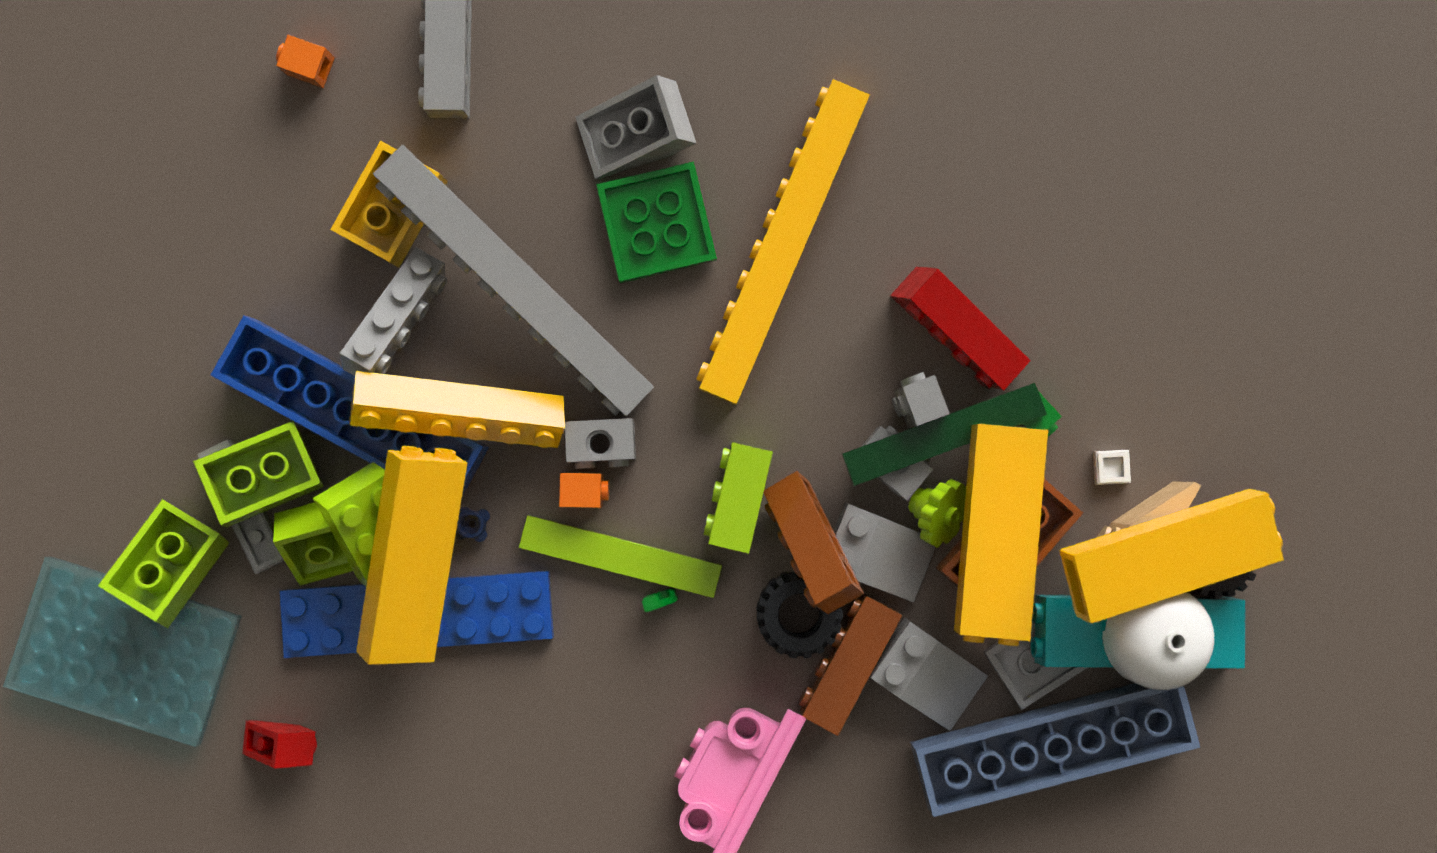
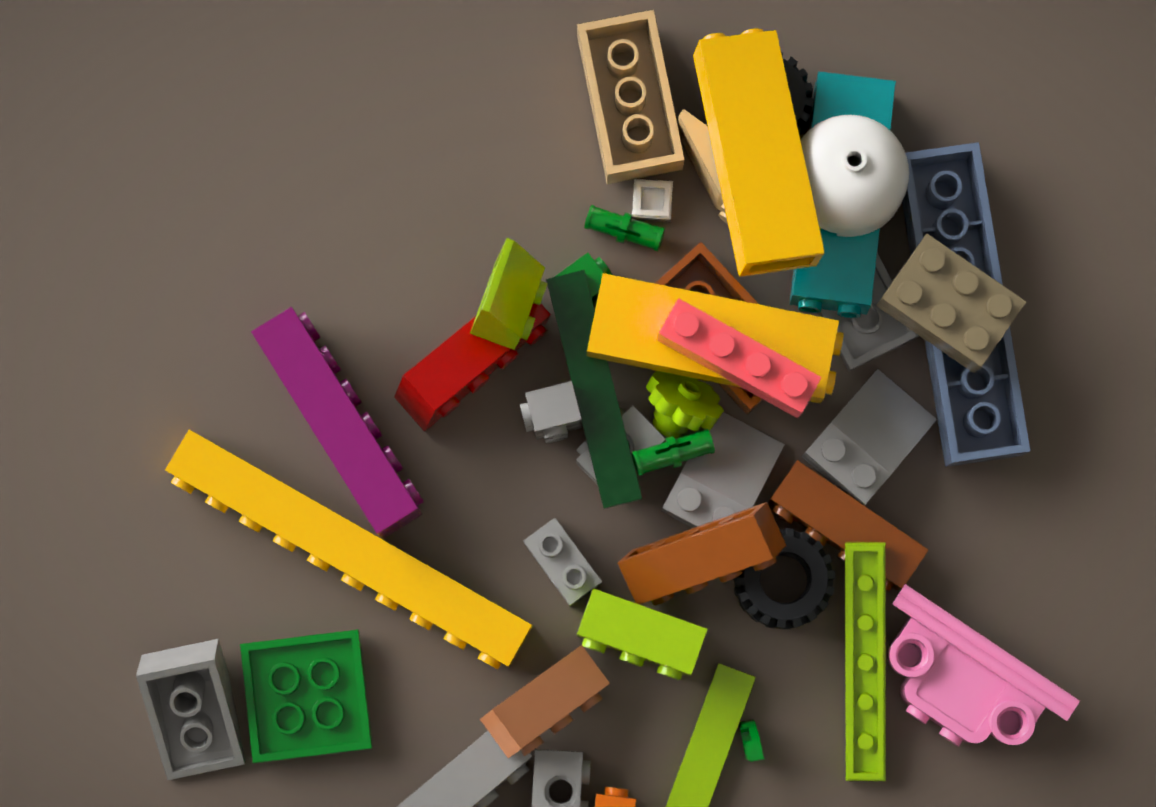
camera: 85 degrees left, 5 degrees down
(671, 423) = (546, 703): none -> nougat brick
(738, 690) = (865, 661): none -> lime tile
(792, 424) = (562, 562): none -> light grey brick
(895, 214) = (336, 422): none -> magenta brick
(897, 508) = (673, 452): none -> green pin
(987, 556) = (738, 358): none -> coral brick
(1017, 351) = (509, 297): none -> lime slope
(1055, 738) = (951, 303): none -> dark tan brick
(1085, 445) = (624, 228): none -> green pin
(1202, 438) = (630, 97): none -> tan brick

